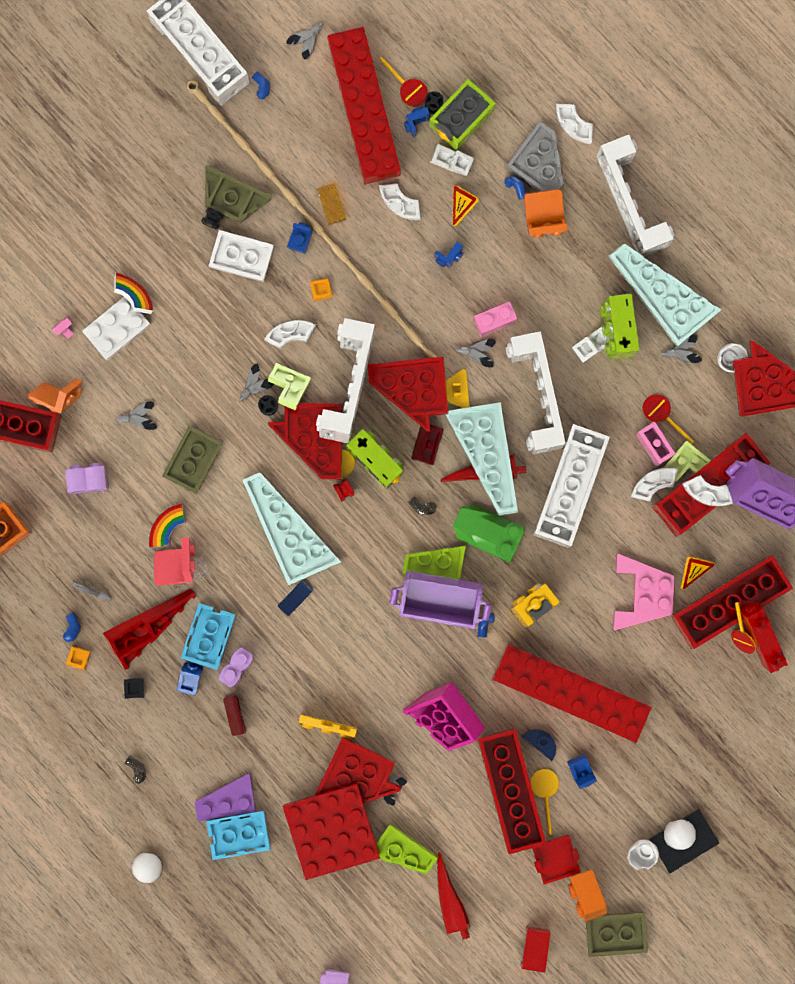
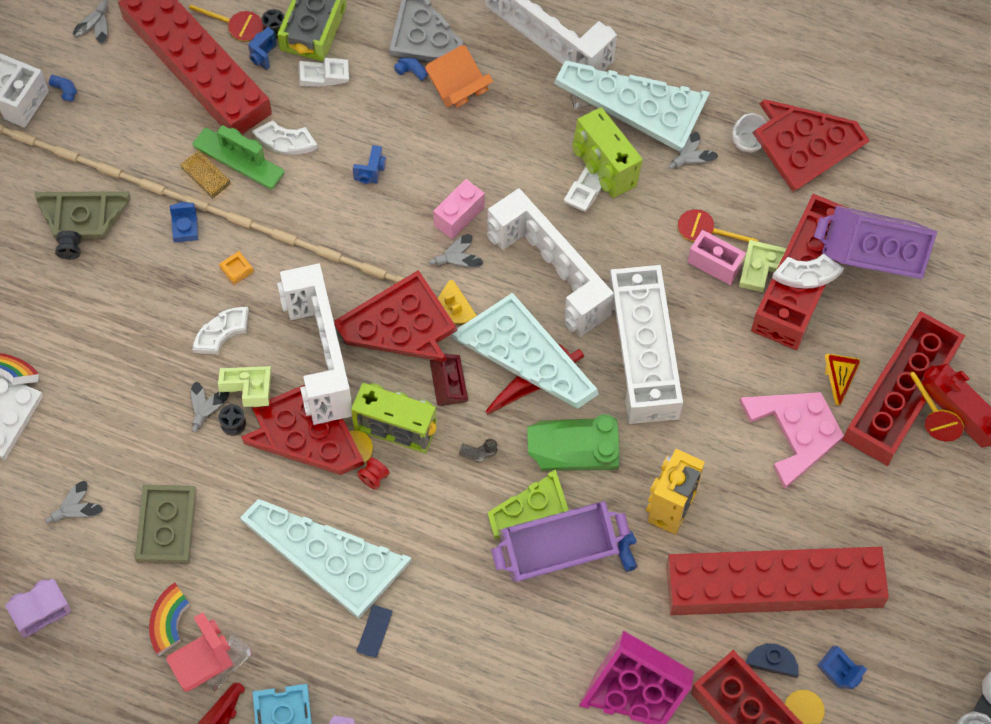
camera: 25 degrees left, 20 degrees down
(241, 256) = (122, 271): white plate -> none
(360, 201) = (239, 154): none -> bright green bracket
(462, 204) = (358, 107): piece -> none
(653, 482) = (737, 300): white tile -> none

